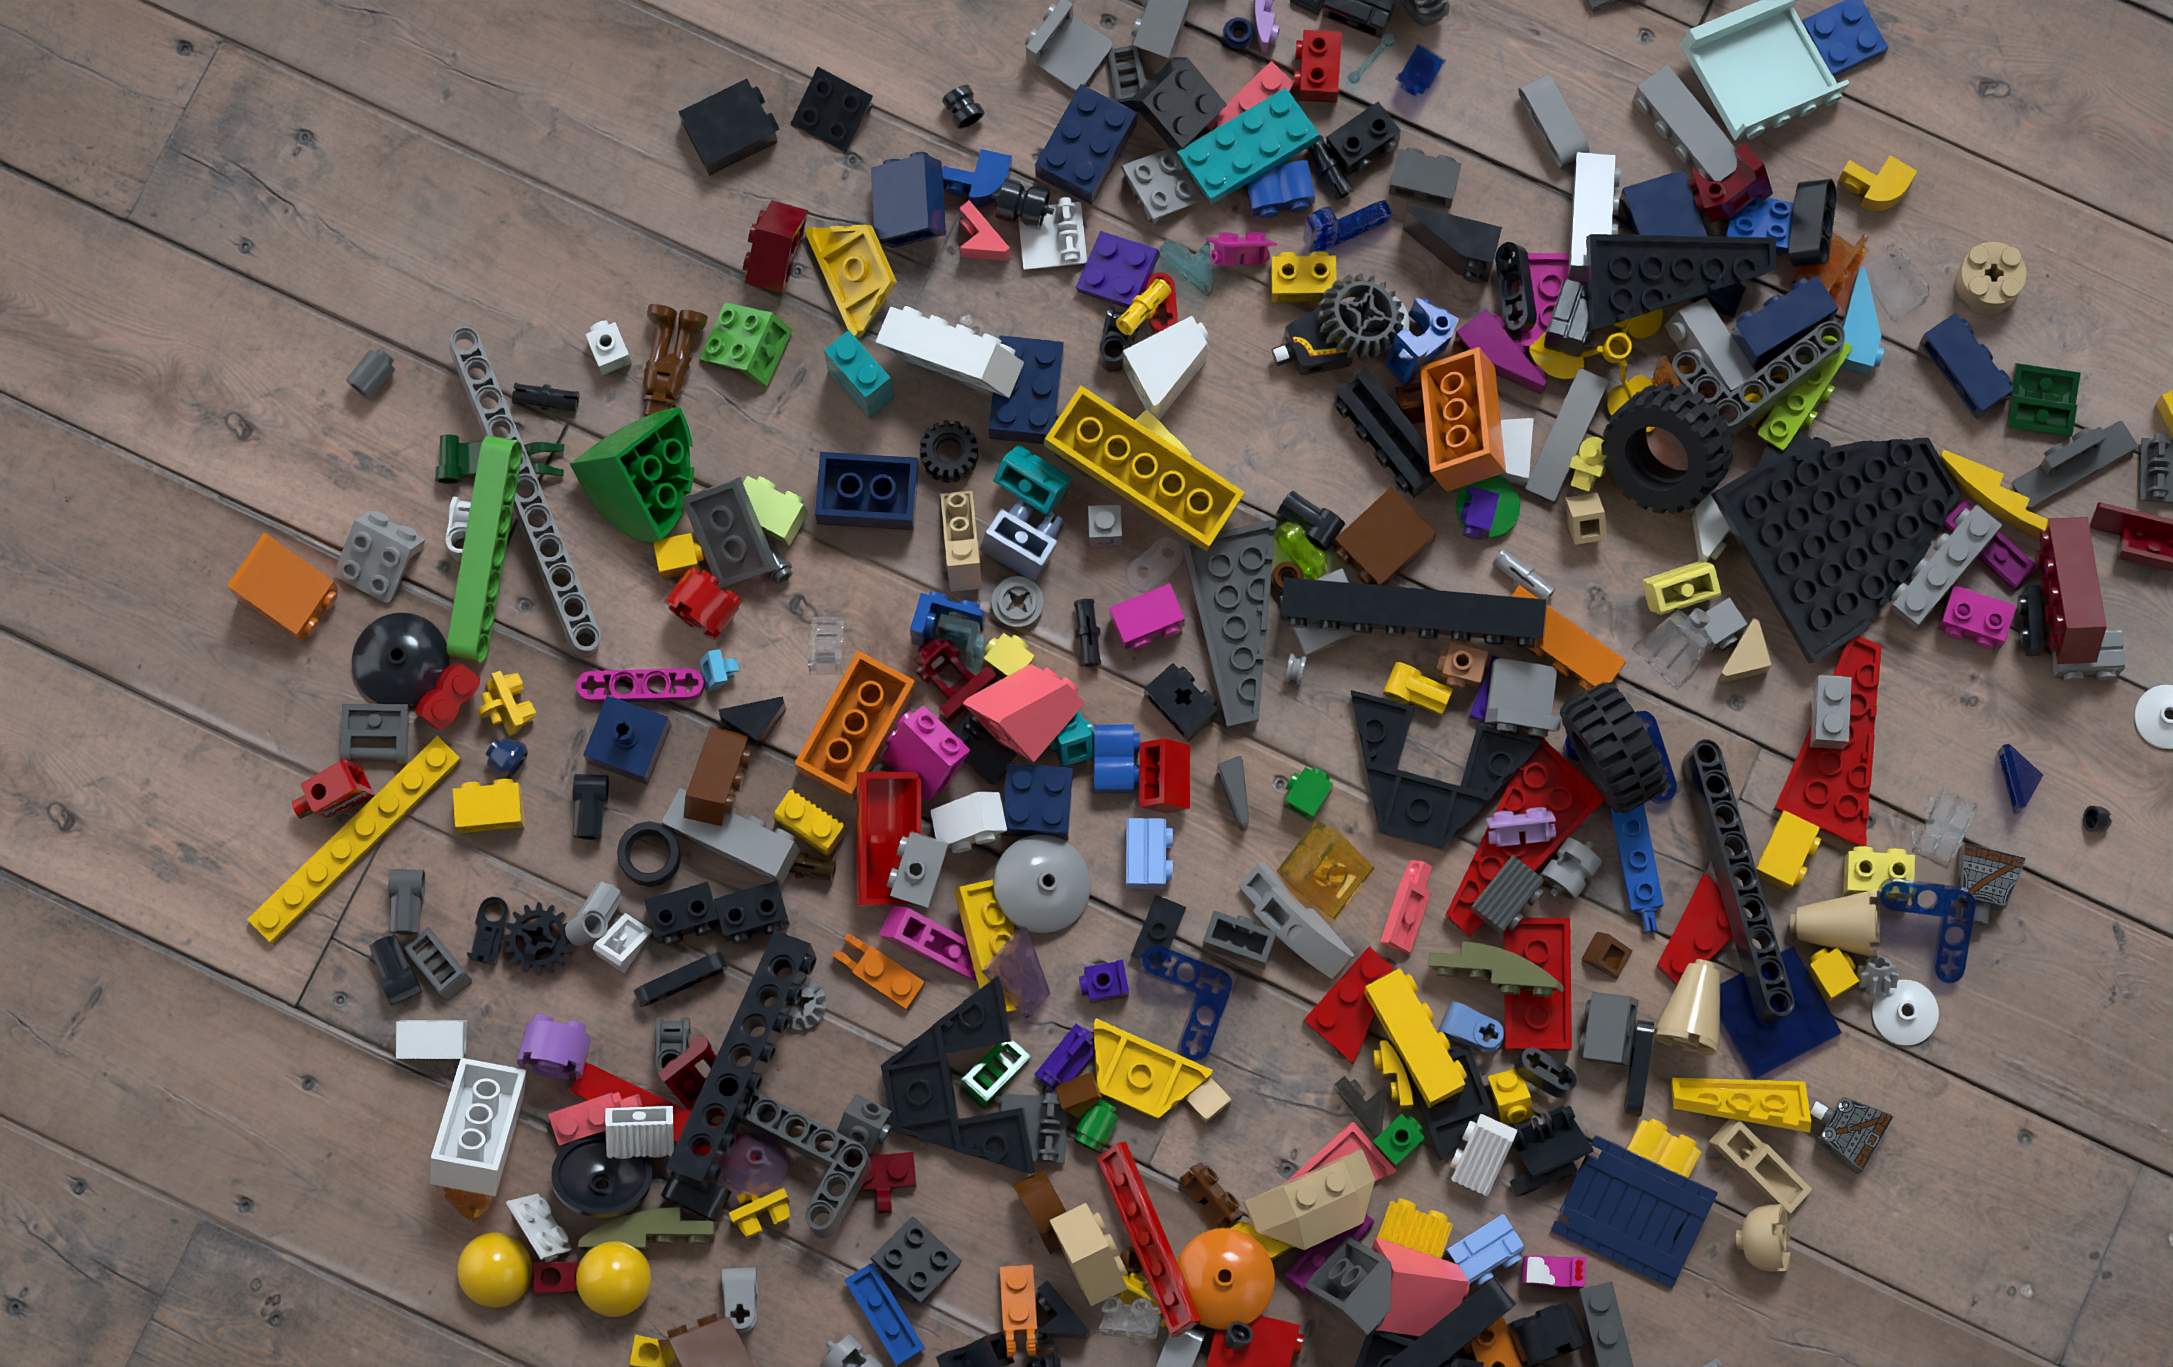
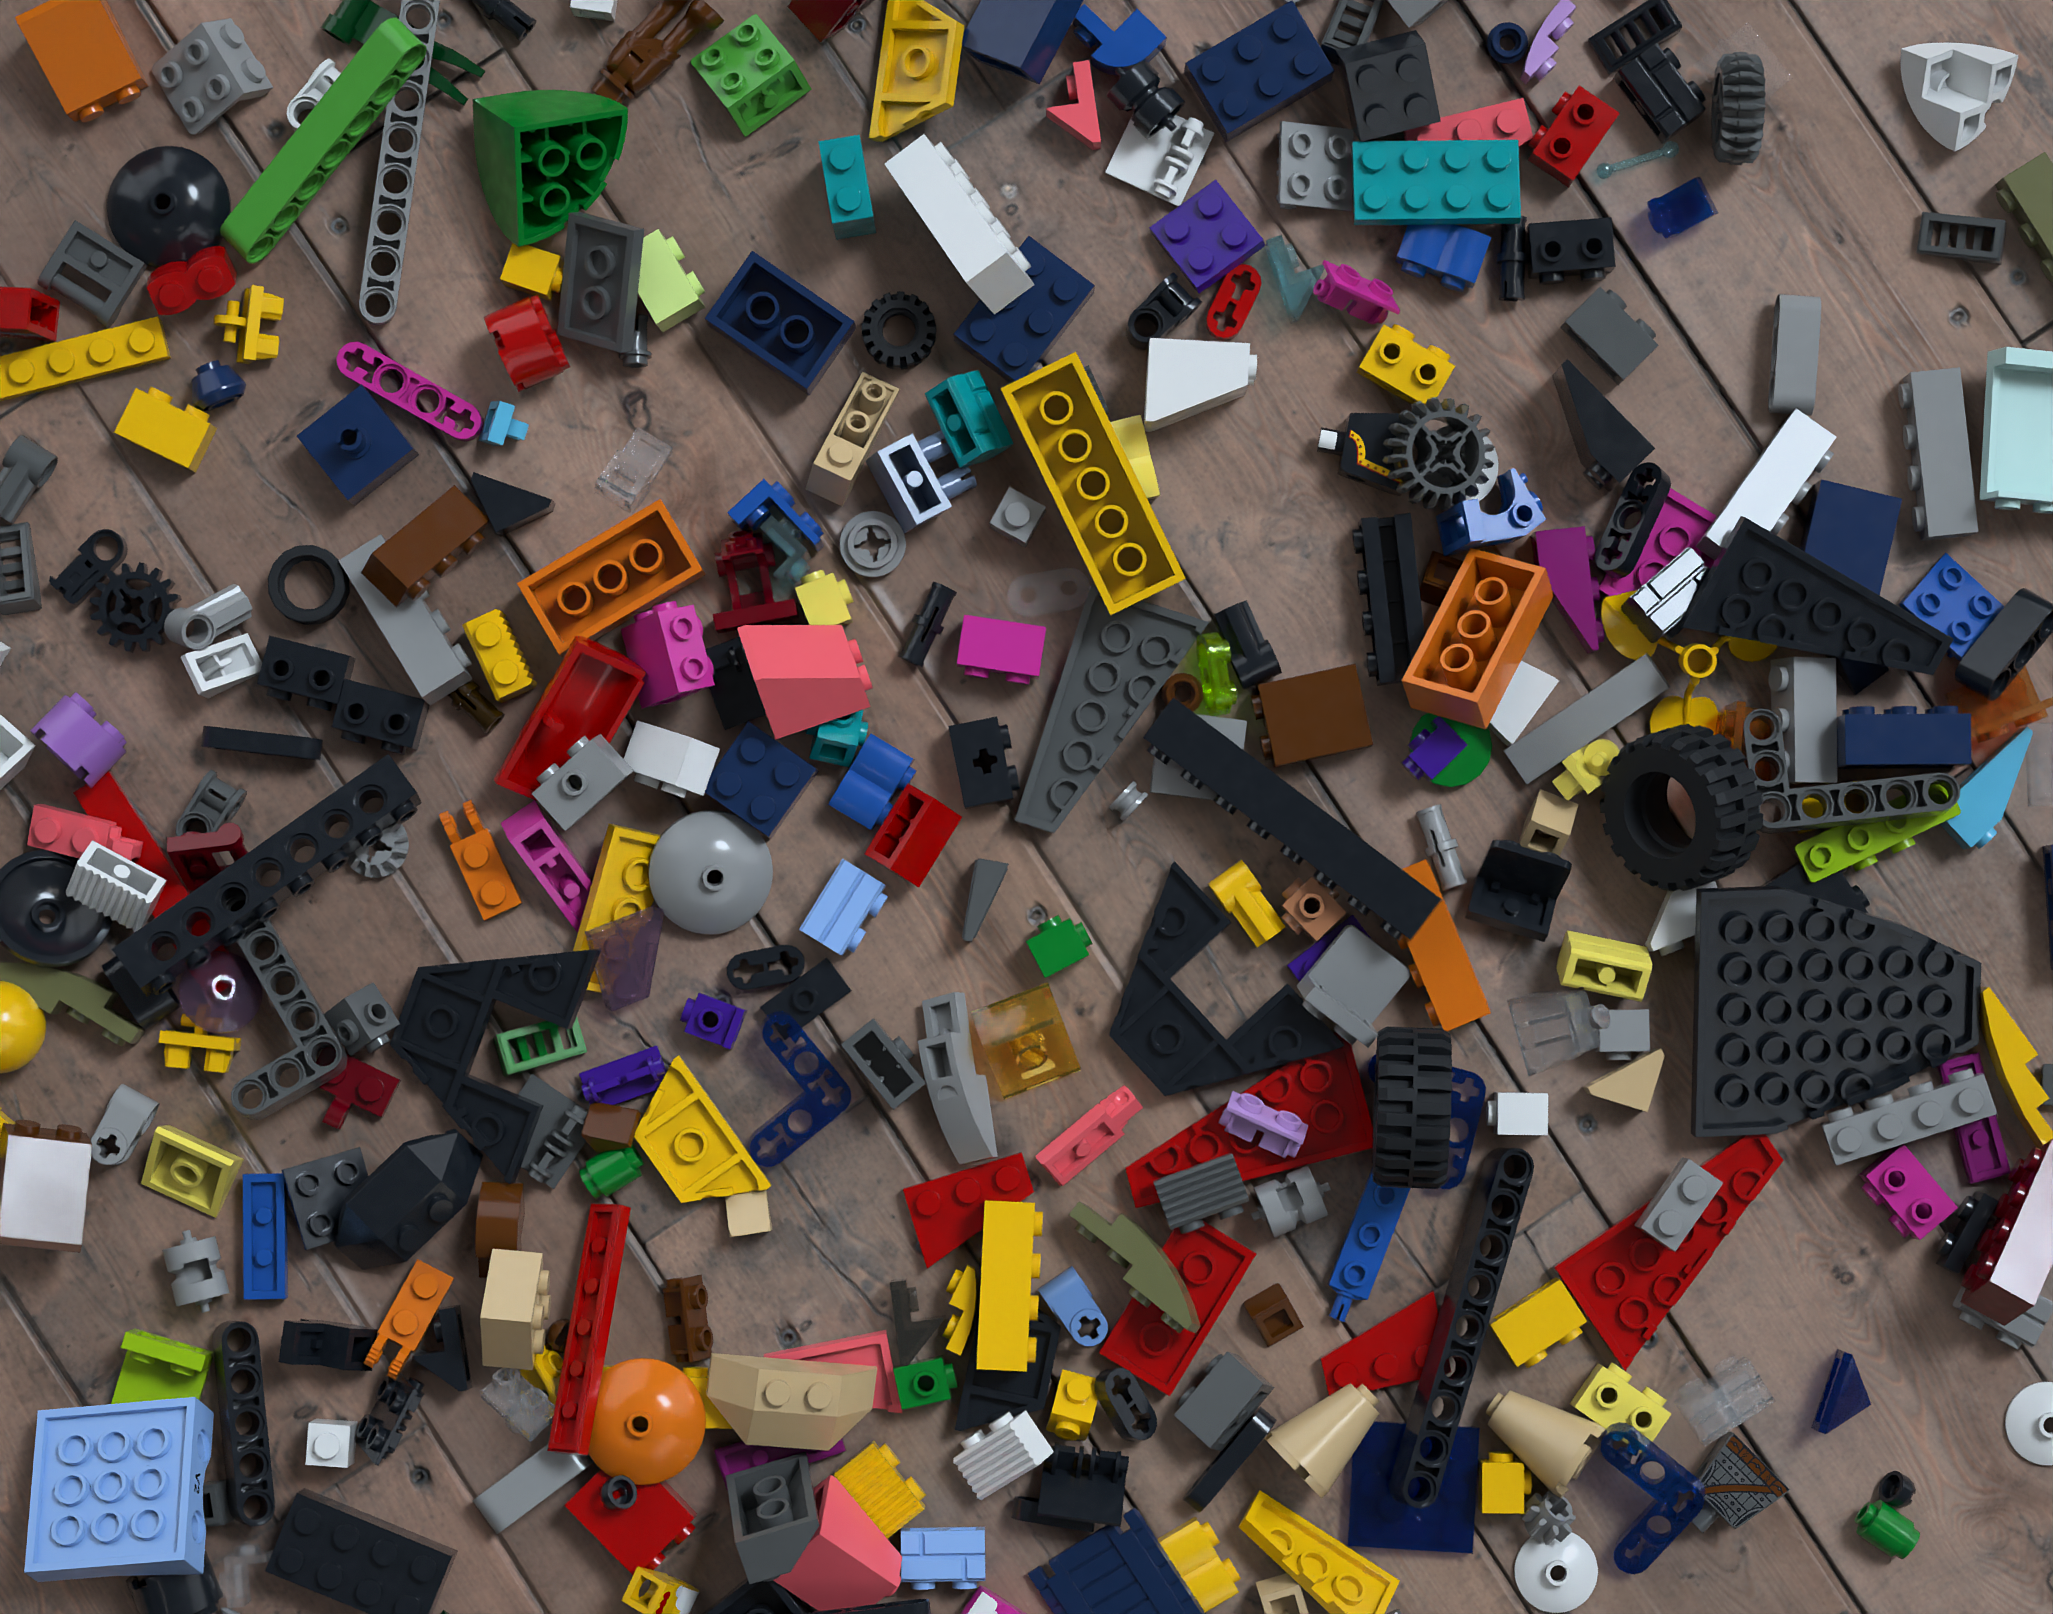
camera: 30 degrees right, 10 degrees up
(589, 796) = (282, 482): black piece -> none
(805, 1300) = (190, 1169): none -> light yellow slope
(969, 1229) = (407, 1199): none -> black wedge
(1112, 920) = (765, 956): none -> black beam
(1143, 306) = (1206, 297): yellow pin -> none
(1325, 231) = (1460, 331): clear blue beam -> none
(1591, 570) = (1517, 889): none -> black bracket
(1686, 719) = (1518, 1113): none -> white brick
(1736, 192) = (1943, 561): dark red tile -> none
(2107, 848) = (1886, 1529): none -> green brick

